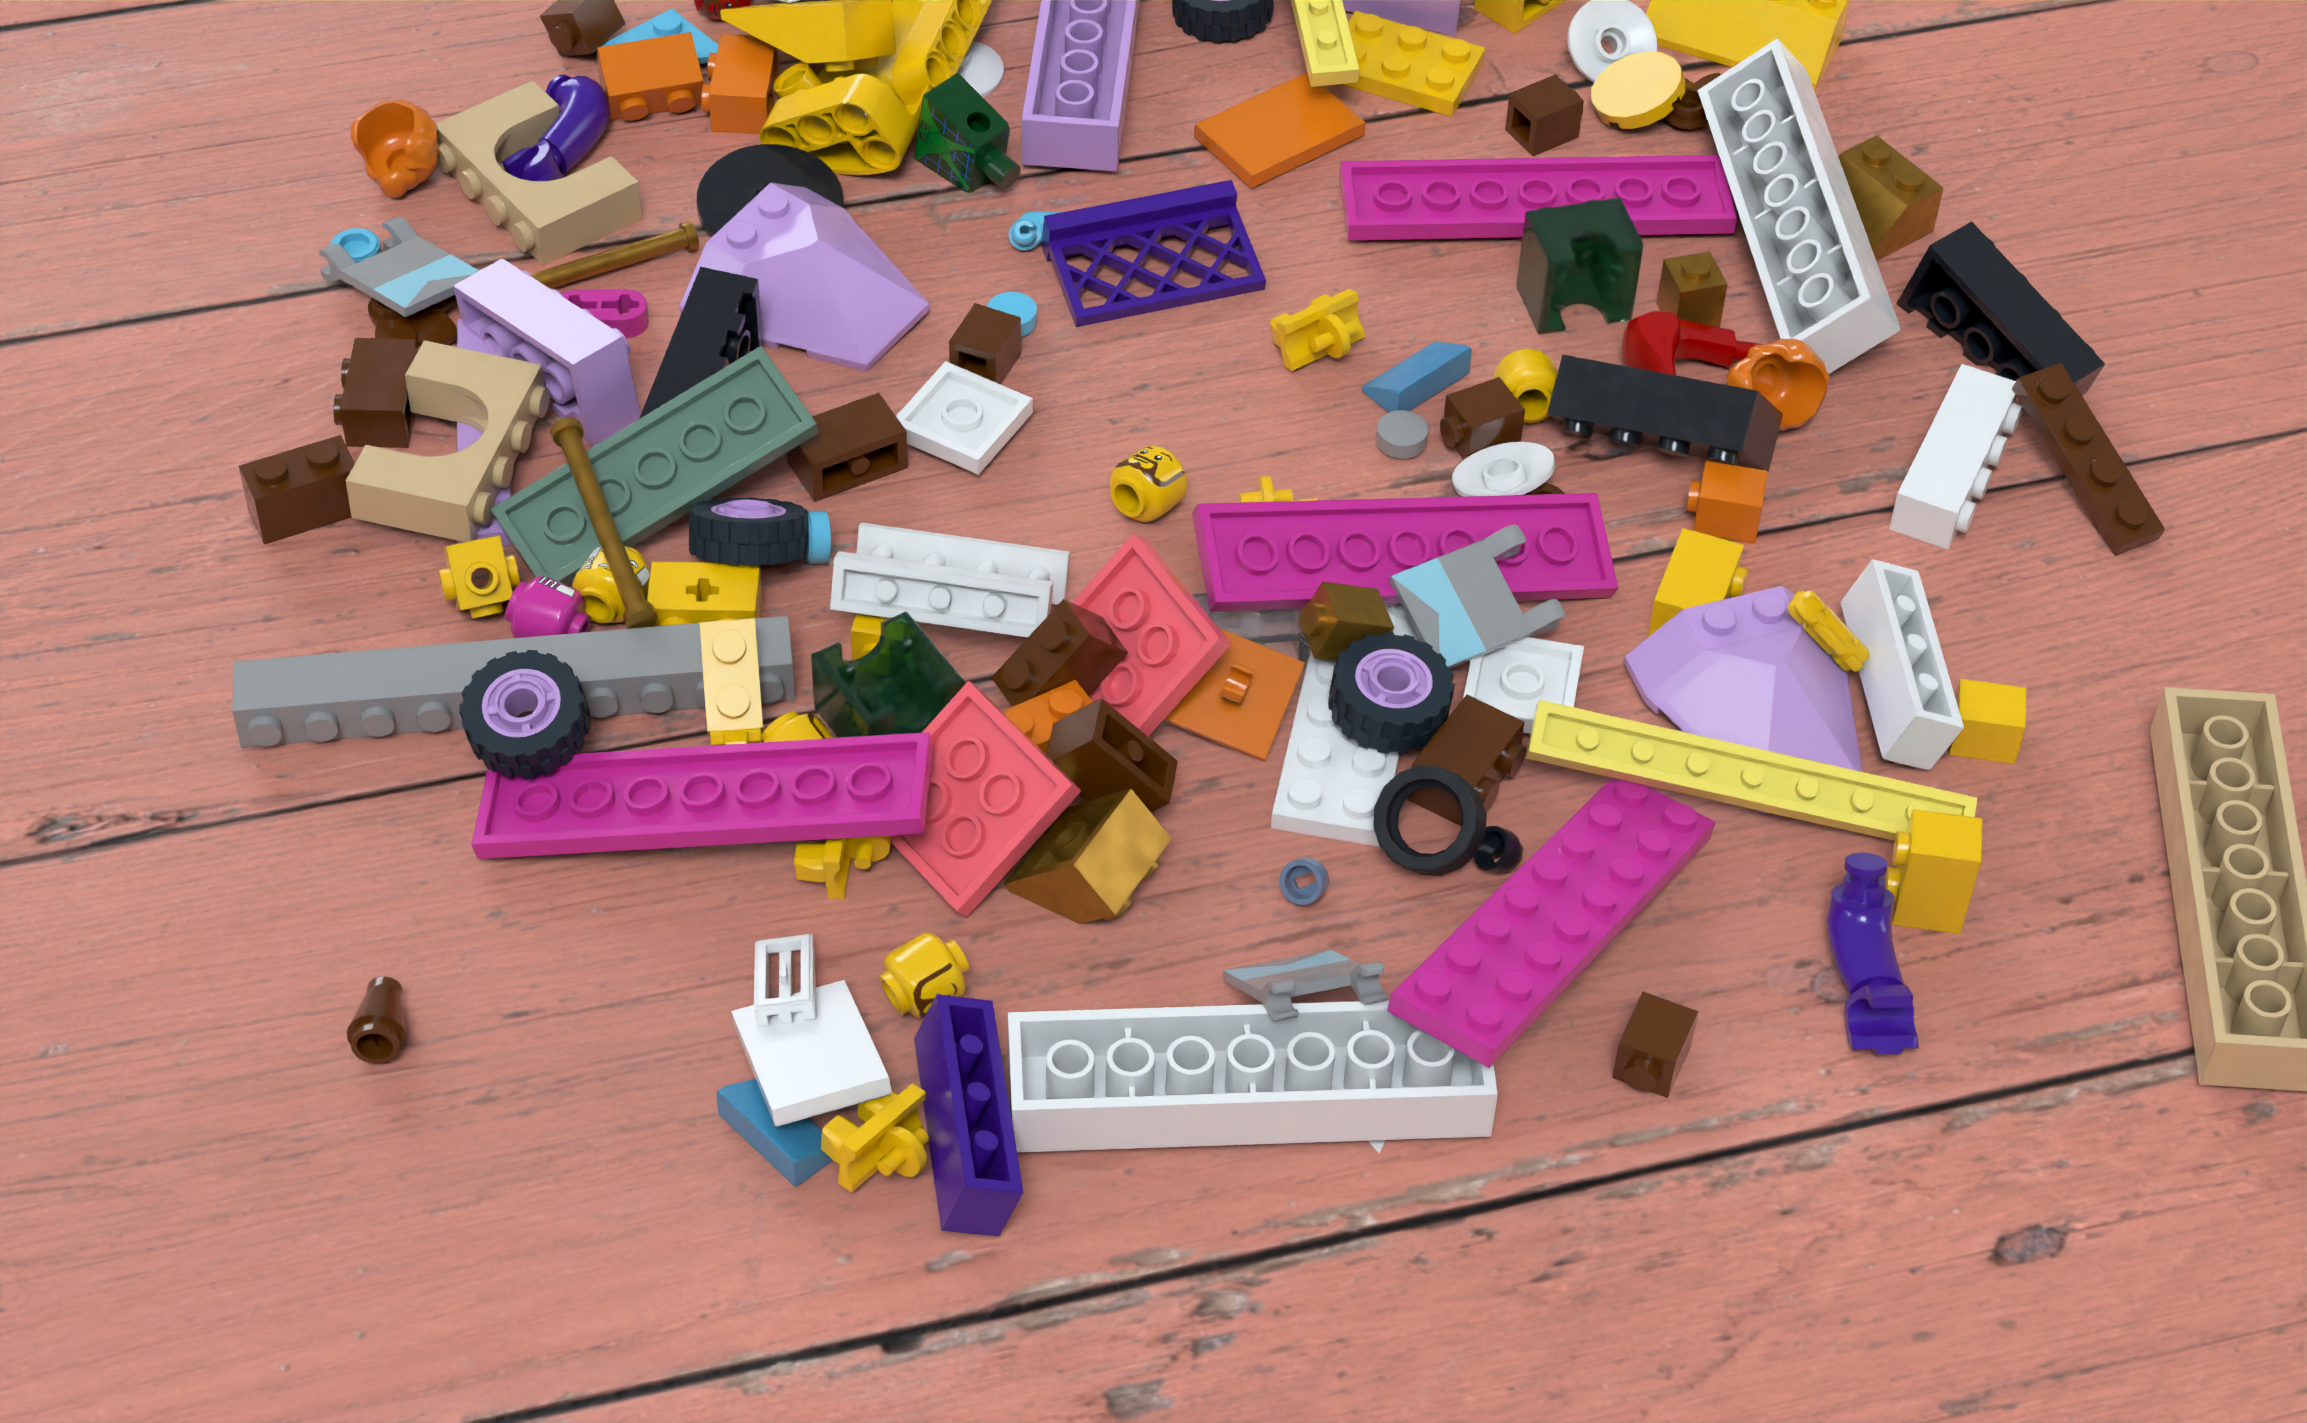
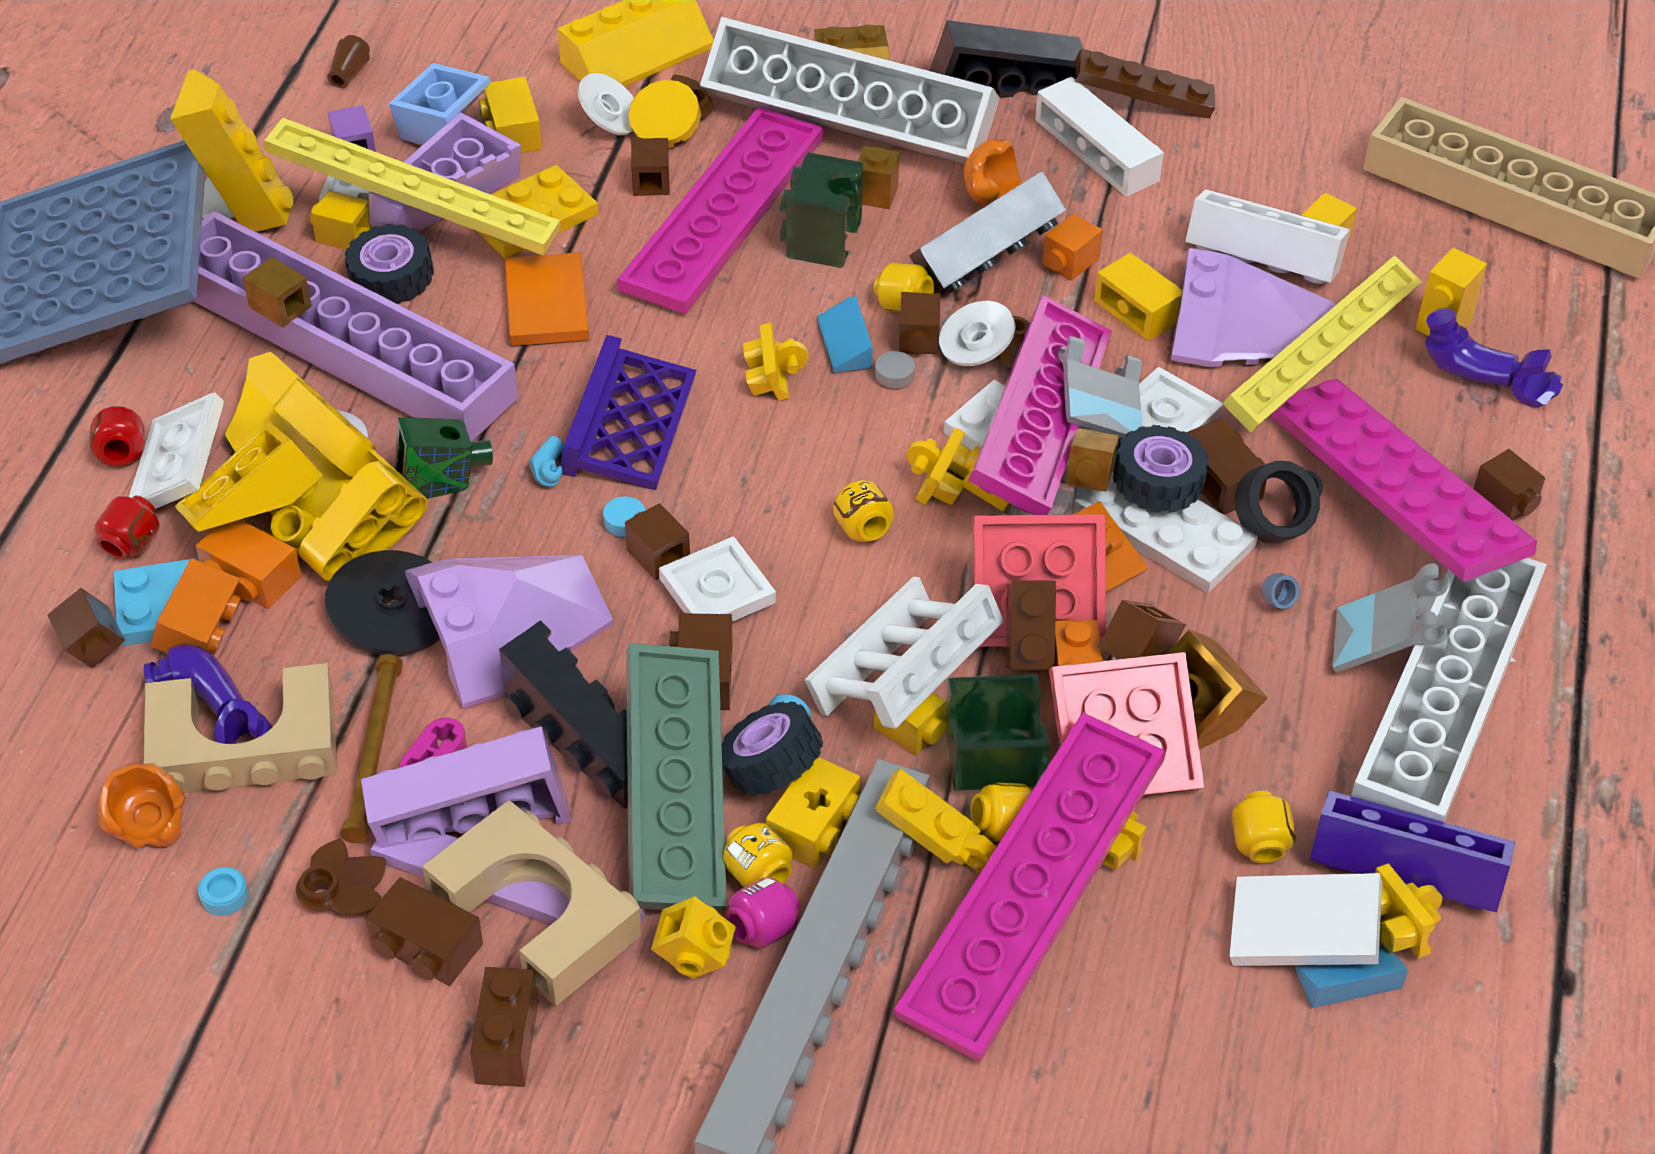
camera: 60 degrees left, 0 degrees up
(405, 275) = (291, 862): light grey flag -> none
(528, 743) = (885, 983): black wheel -> none
(568, 435) = (717, 827): pearl gold bar -> none
(785, 1003) = (1219, 917): white tile -> none
(1661, 337) = (915, 210): red animal -> none
(1828, 630) = (1236, 246): yellow axle -> none

